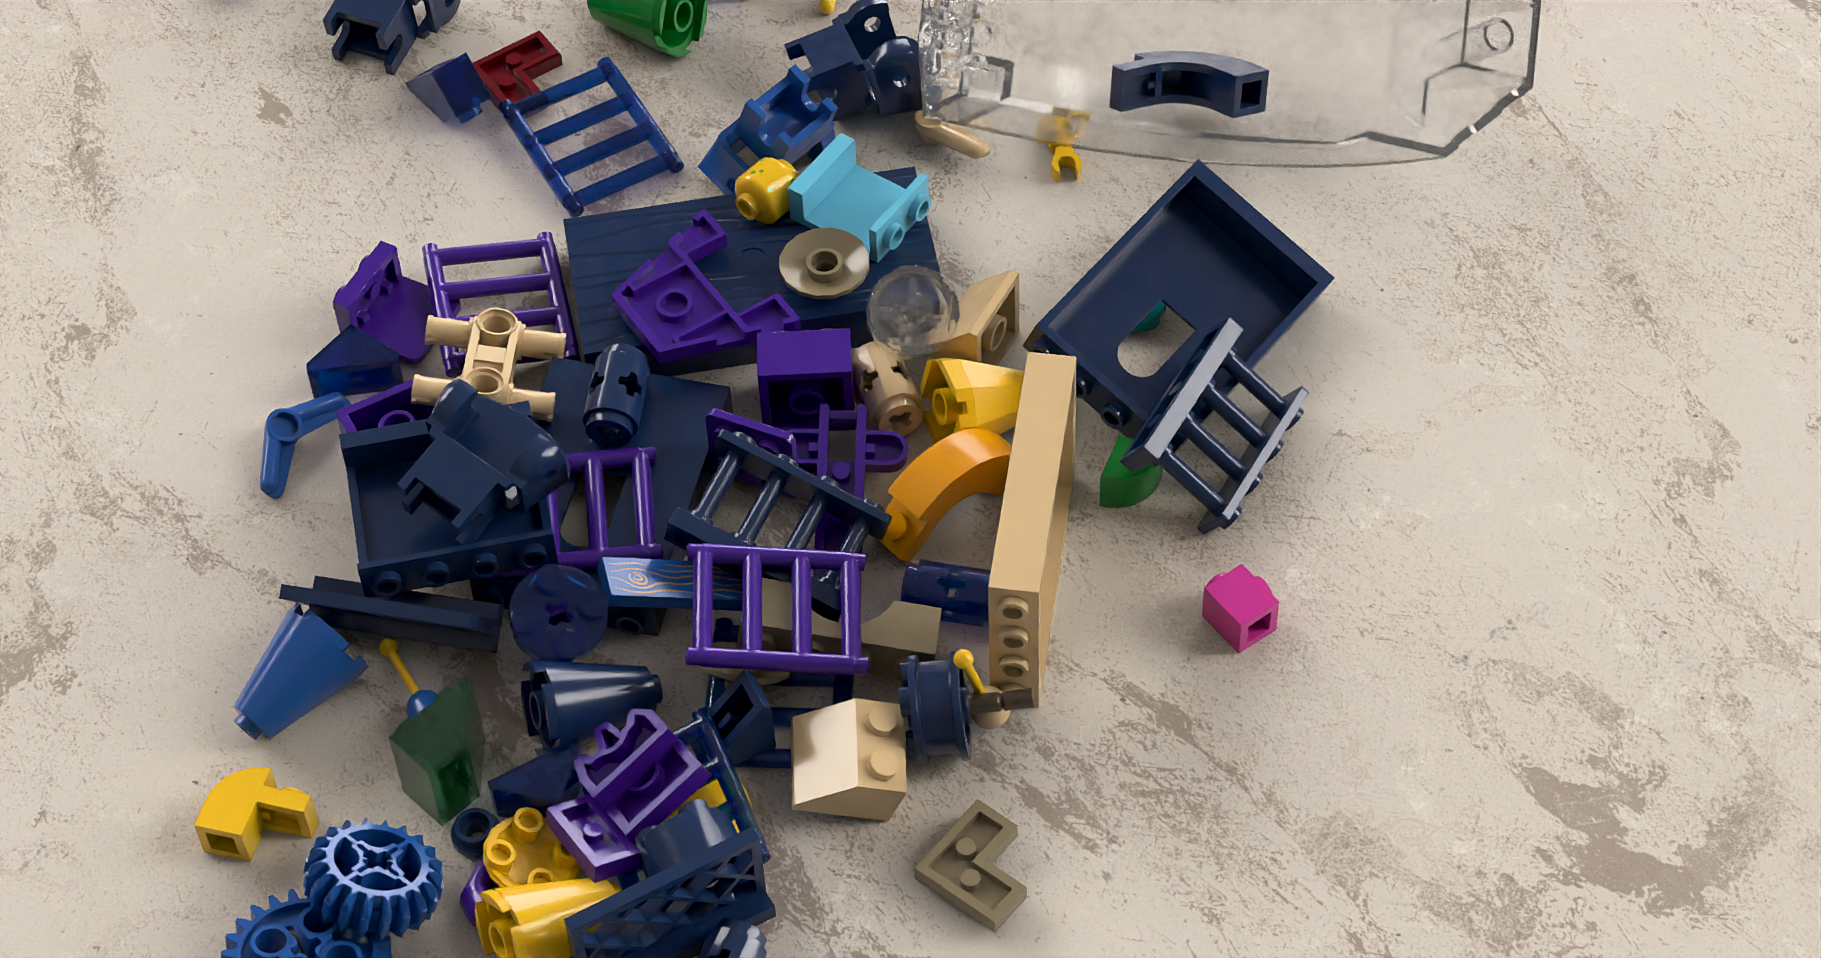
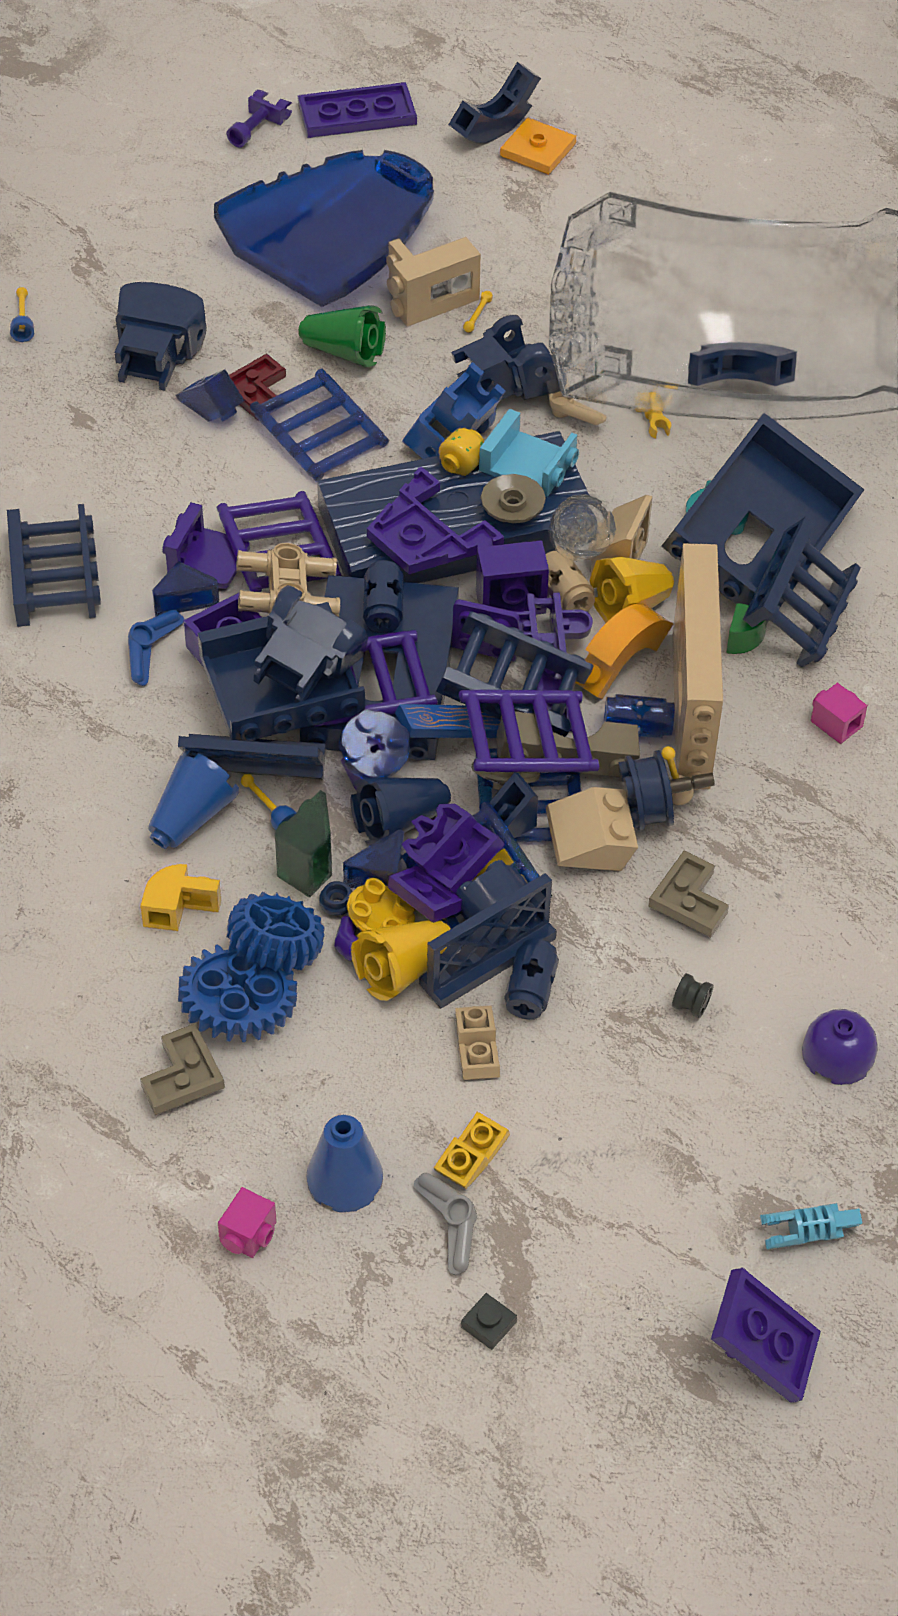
camera: 10 degrees left, 0 degrees up
(145, 298) = (25, 578): none -> dark blue fence

